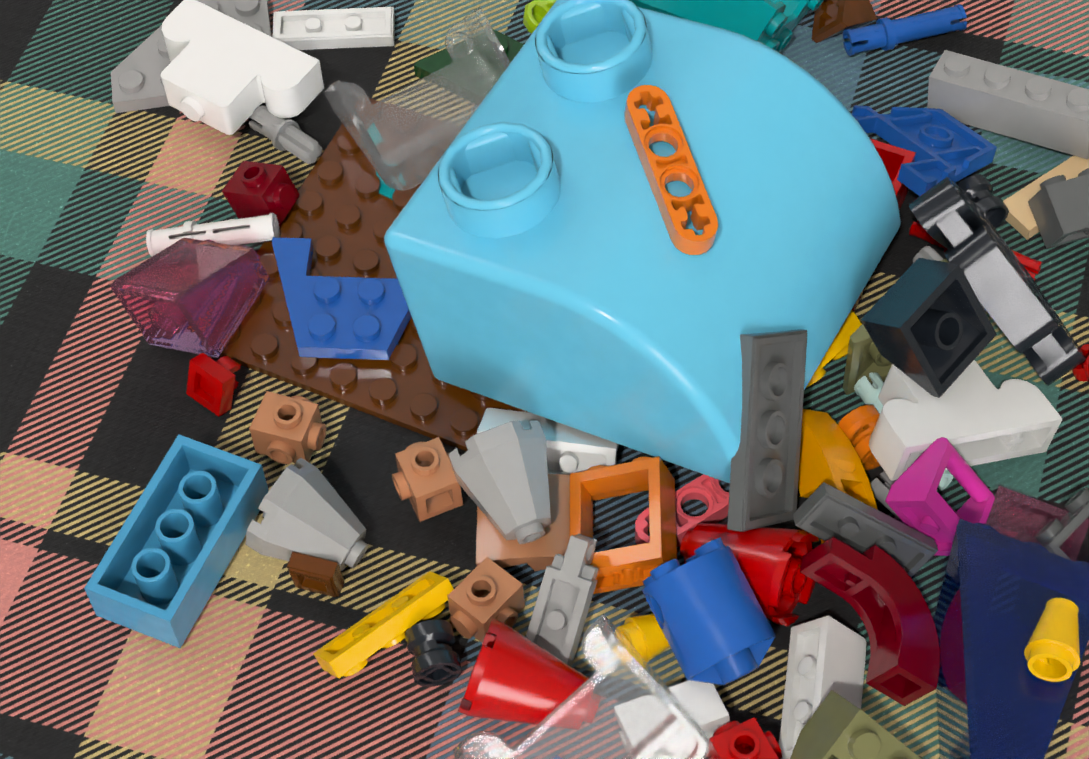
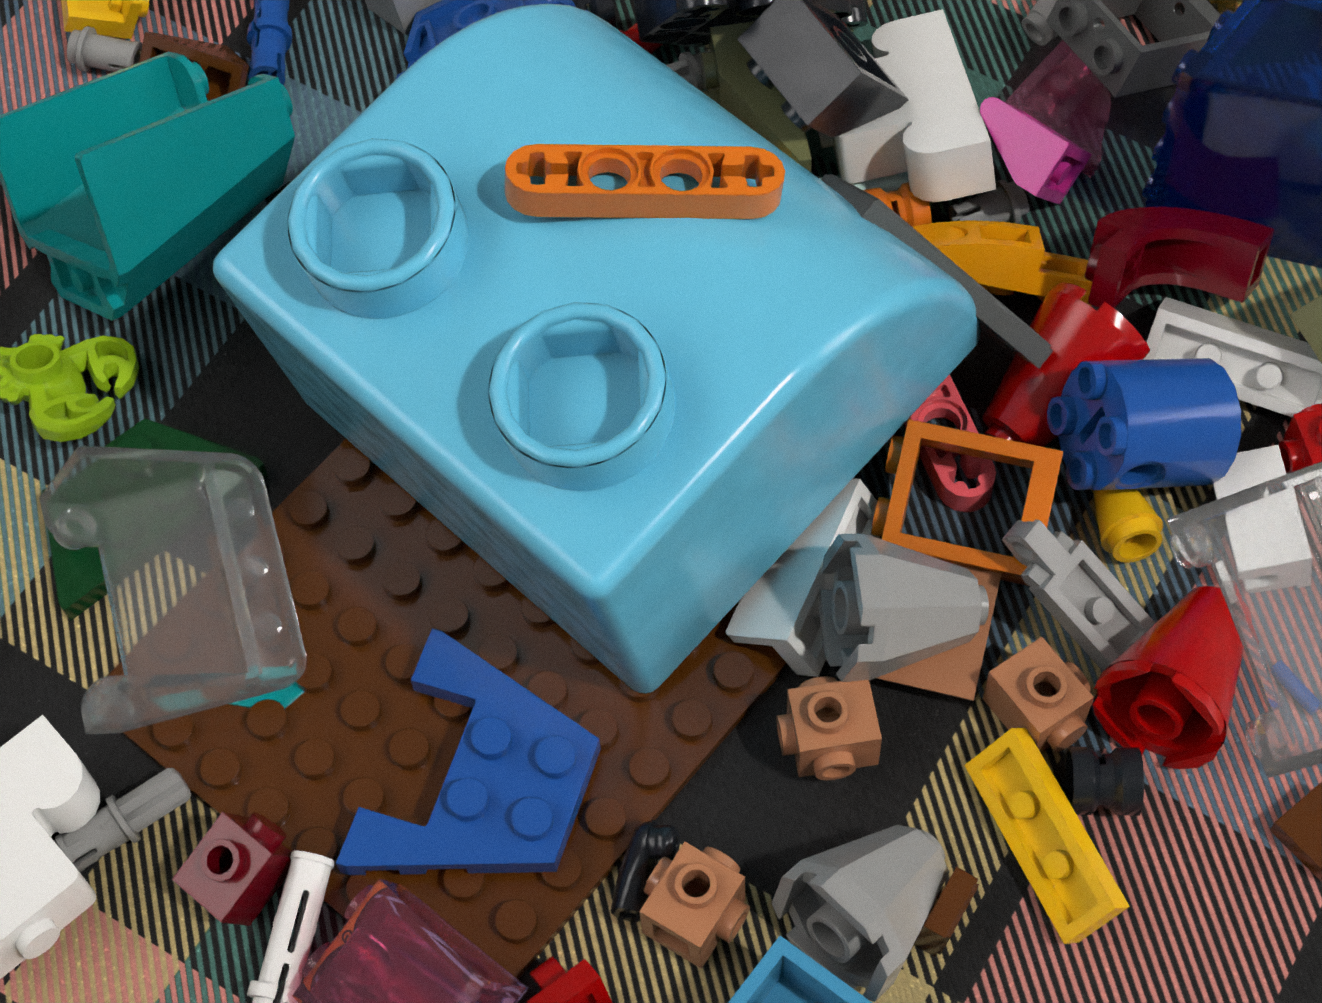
camera: 75 degrees left, 5 degrees up
(325, 396) = (647, 845): none -> black arm
(839, 515) = (1063, 234): dark grey tile -> none

